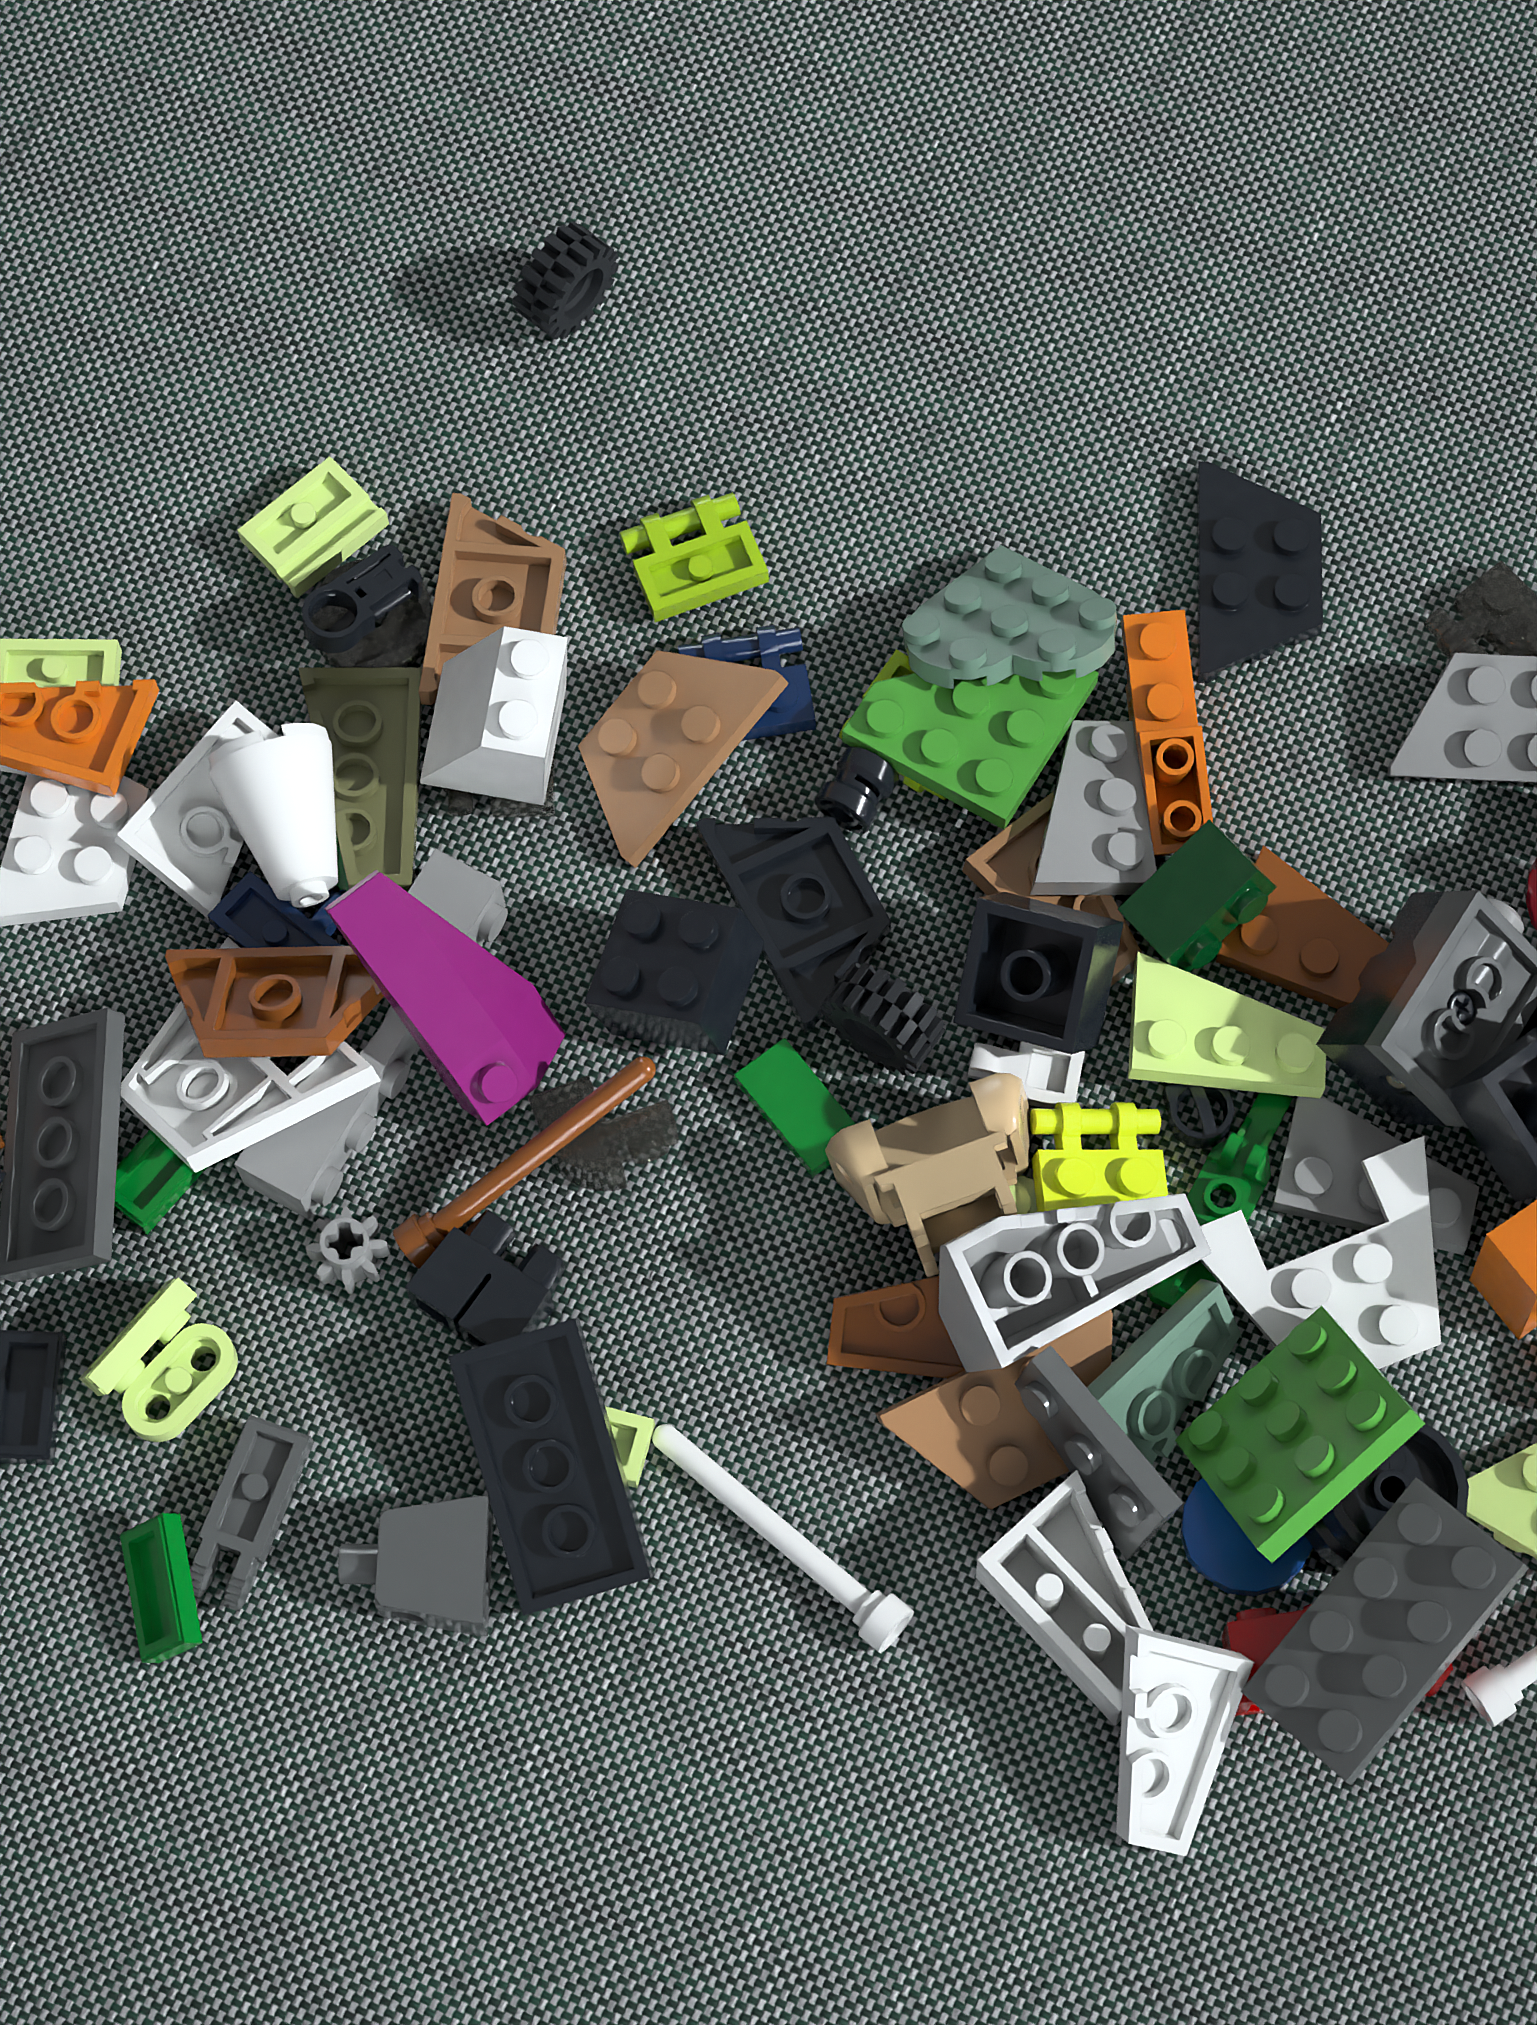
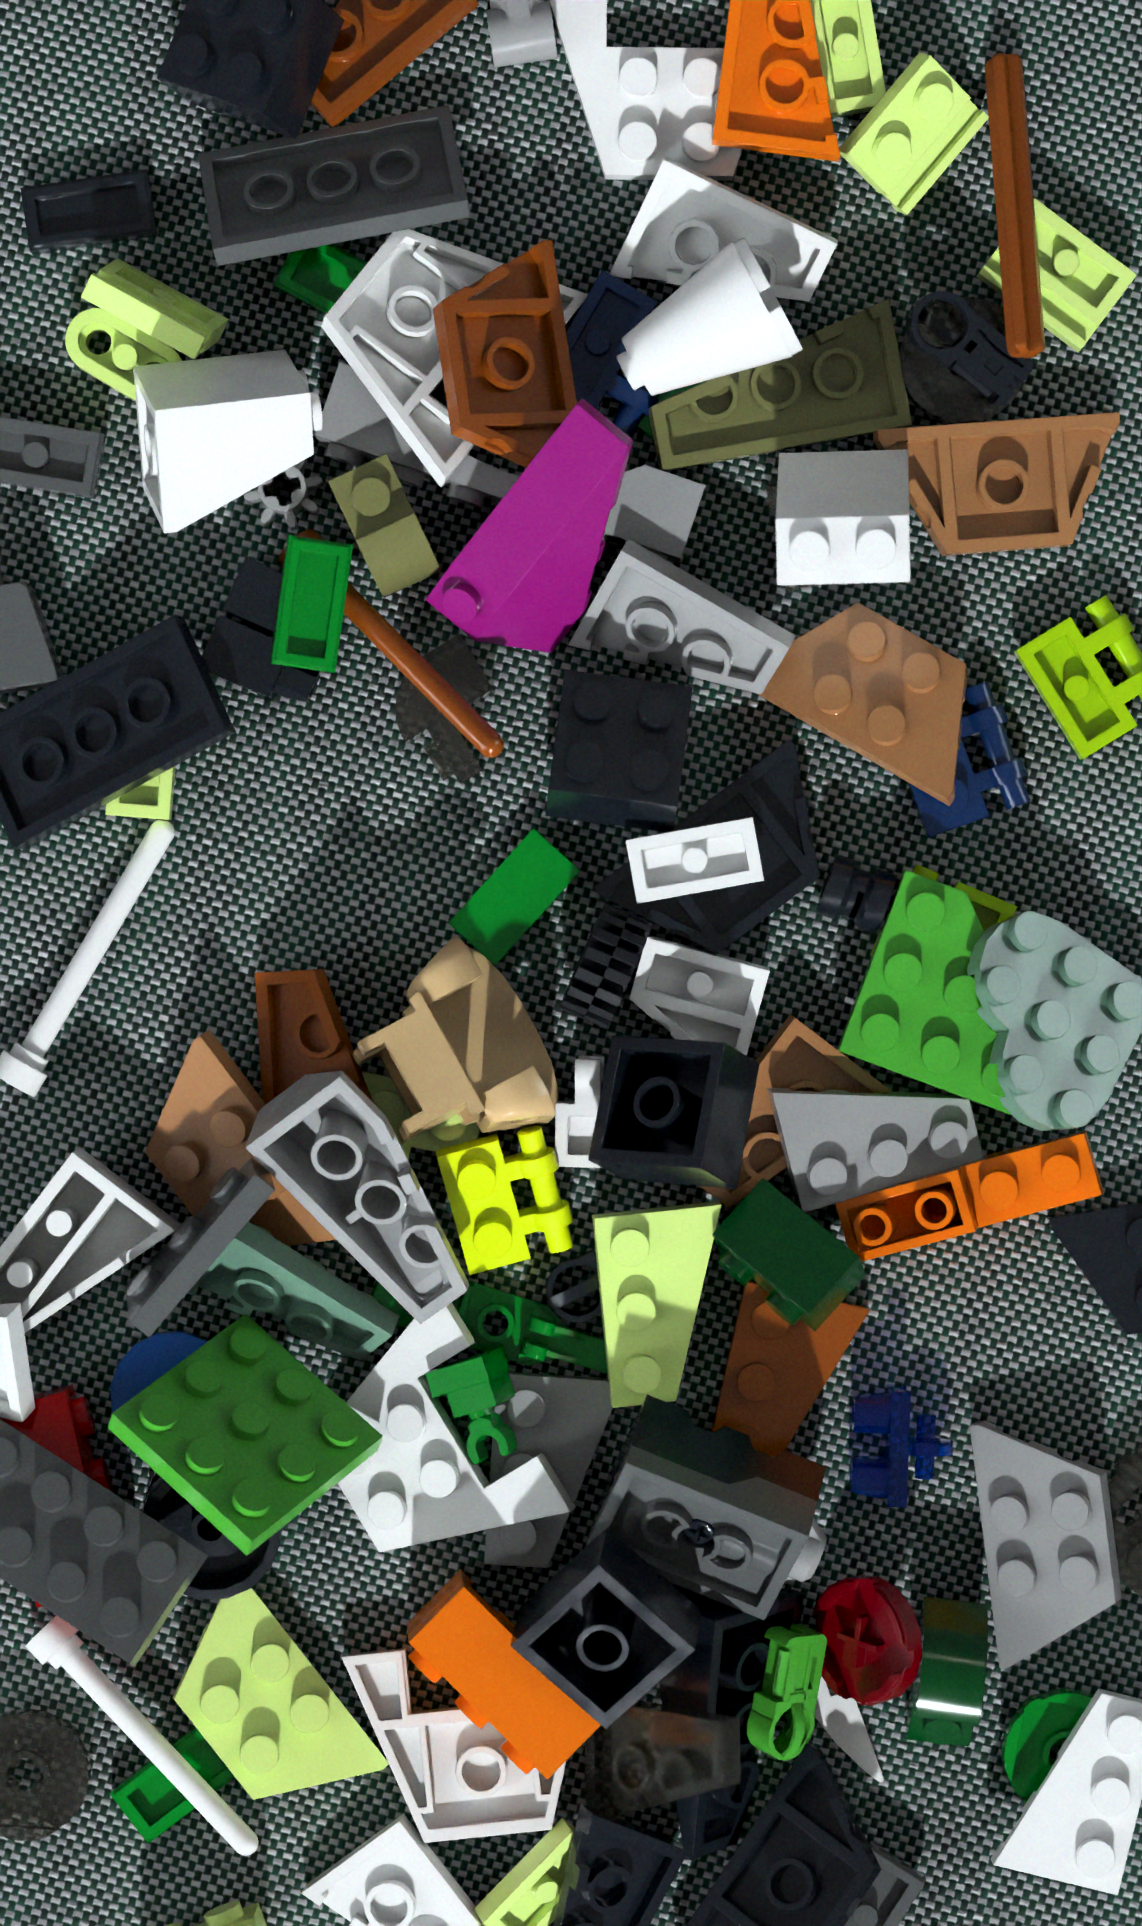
camera: 75 degrees right, 20 degrees up
(150, 624) = (913, 133): none -> yellowish green plate
(240, 542) = (1014, 206): none -> dark orange axle
(275, 1290) = (219, 429): none -> white slope
(418, 1145) = (384, 526): none -> olive brick
(466, 1228) = (311, 604): none -> green tile
(557, 899) = (676, 619): none -> light grey wing
(795, 918) = (694, 860): none -> white plate
(928, 940) = (699, 992): none -> white wing
(1287, 1214) = (473, 1389): none -> green piece
(1402, 836) = (888, 1474): none -> clear blue hips

